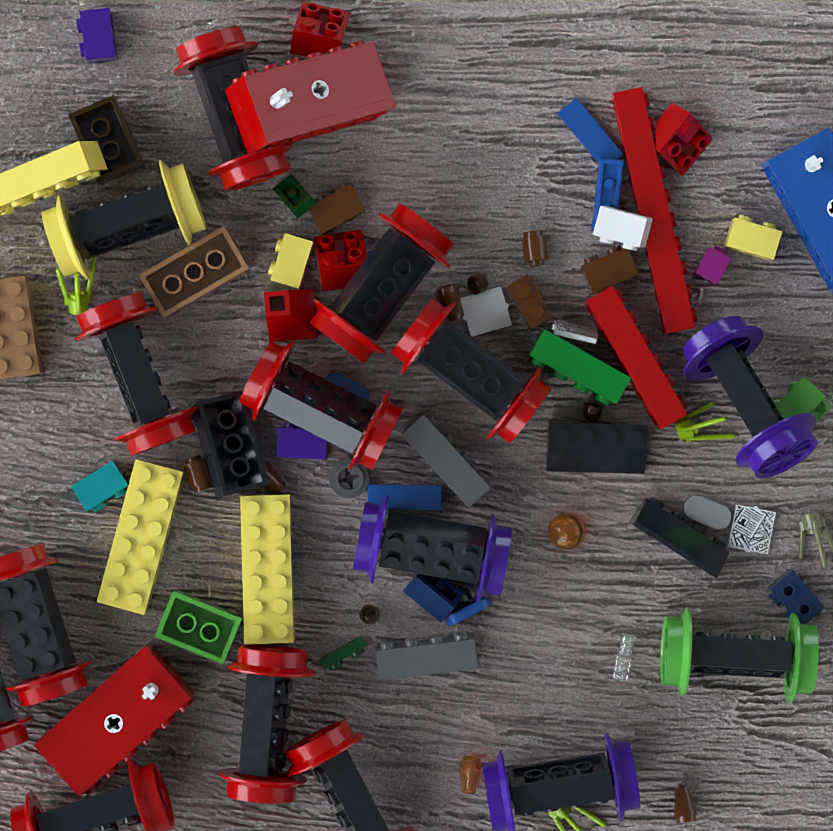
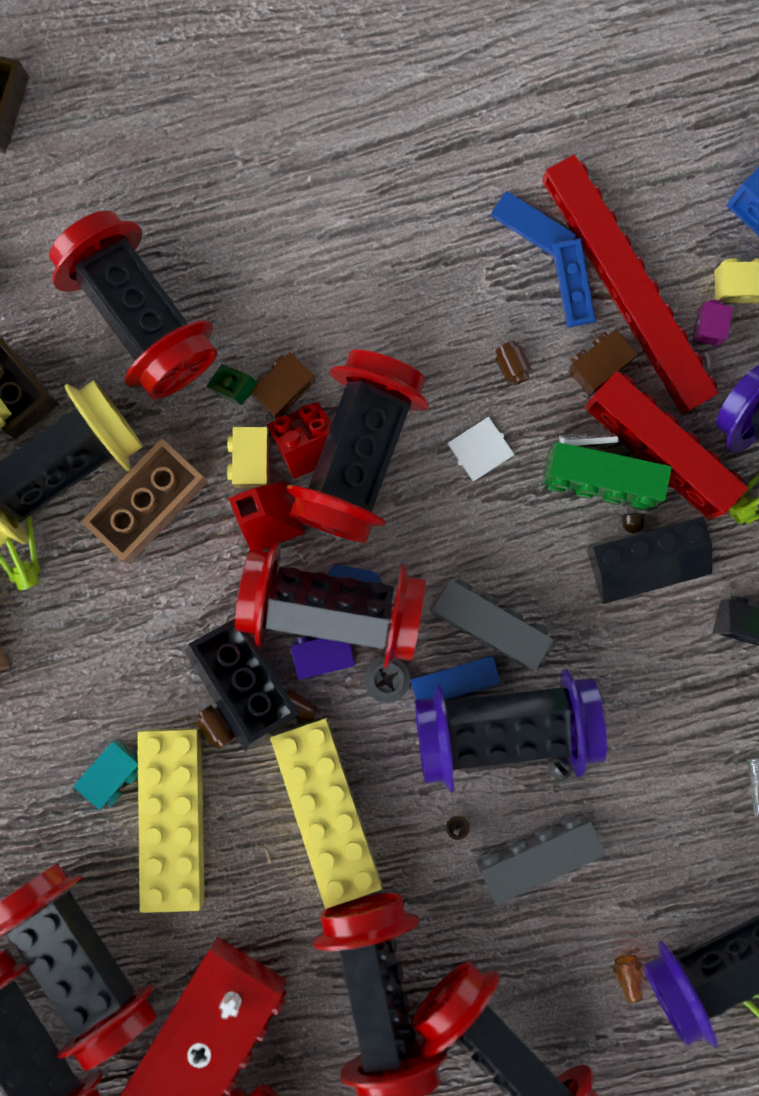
camera: 20 degrees left, 5 degrees down
(134, 373) = (71, 584): brick -> none
(199, 626) = (267, 903): bright green brick -> none
(310, 96) = (213, 262): red piece -> none
(318, 29) = (203, 201): red slope -> none
(335, 657) = (433, 892): dark green plate -> none
(434, 594) = (524, 782): dark blue brick -> none
(447, 295) = (439, 449): reddish brown cone -> none
(467, 610) = (566, 791): blue tile -> none
(471, 371) = (491, 514): brick -> none
(472, 286) = (458, 416): dark brown hinge -> none
(529, 302) = (526, 422): reddish brown brick -> none
(567, 531) = (648, 664): clear orange hair -> none
(623, 227) = (604, 307): white brick -> none
(680, 138) = (634, 196): red slope -> none

